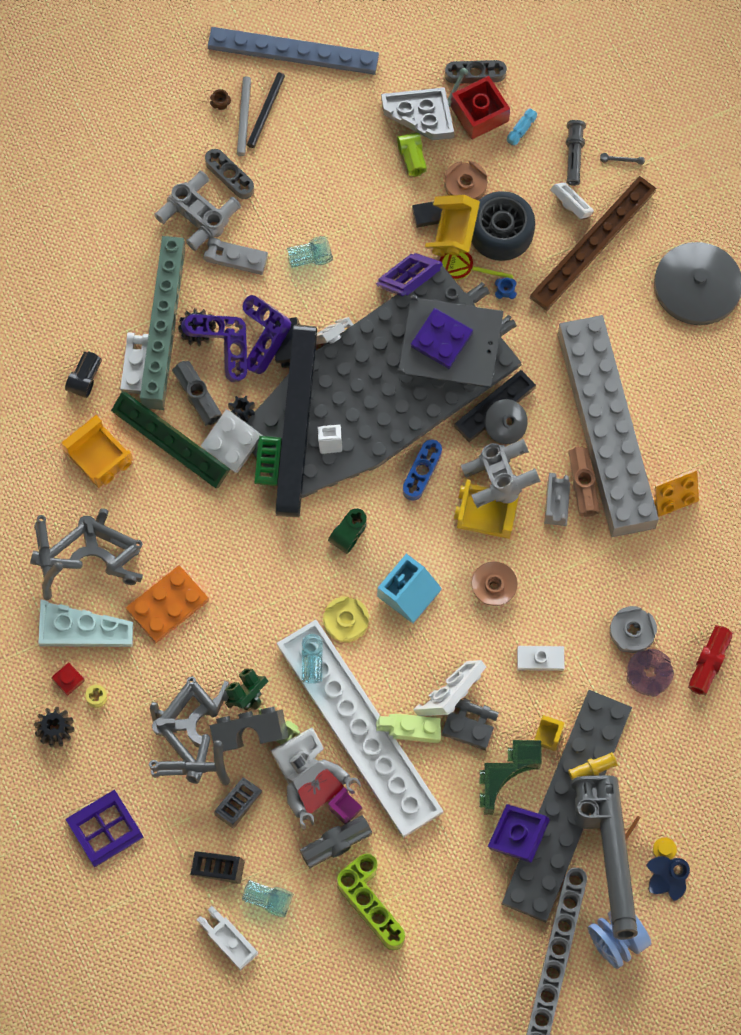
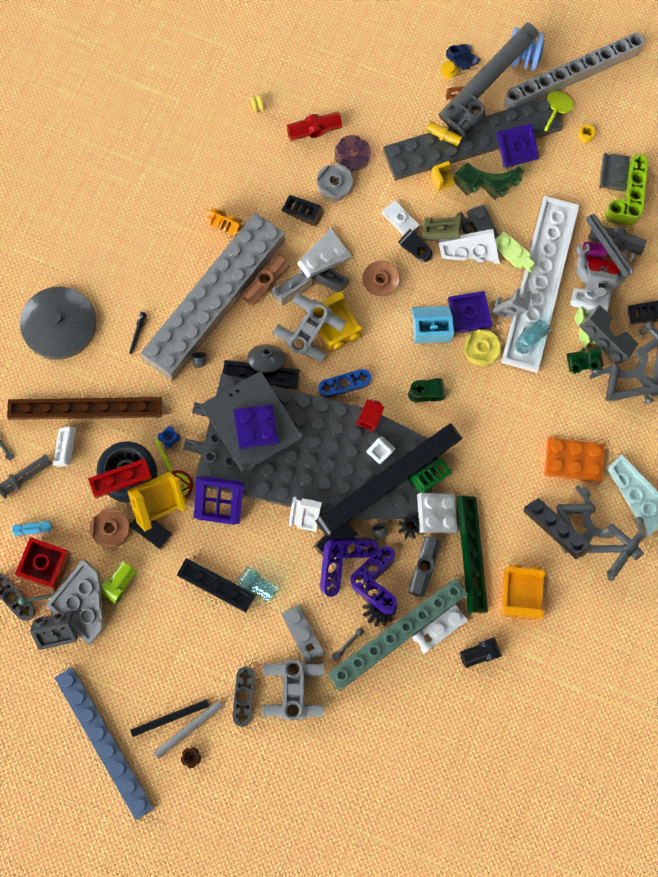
camera: 135 degrees left, 5 degrees up
(122, 519) = (557, 528): none -> black plate
(193, 269) = (336, 655): none -> dark grey hinge
(262, 384) = (380, 530): none -> dark grey hinge
(333, 810) = (609, 245): none -> dark grey axle
(340, 221) = (216, 585): none -> black plate
(356, 670) = (514, 305): none -> light grey hinge
(368, 451) = (370, 414): none -> red brick
(389, 635) = (470, 312): none -> dark purple plate
(409, 911) = (614, 172): none -> dark grey plate
(417, 76) = (53, 630): none -> dark grey bracket
(479, 928) = (586, 138): none -> yellow bush
(489, 674) = (442, 228): none -> olive plate
(495, 203) = (119, 478): none -> red plate
(500, 642) = (413, 244): none -> black piece
(531, 926) = (559, 103): none -> neon yellow piece
(536, 538) = (332, 280): none -> dark grey plate
(557, 369) = (199, 359): none -> dark grey hinge
(562, 551) = (324, 255): none -> white wing
(616, 584) = (313, 215): none -> black slope
(638, 350) = (140, 323): none -> black piece

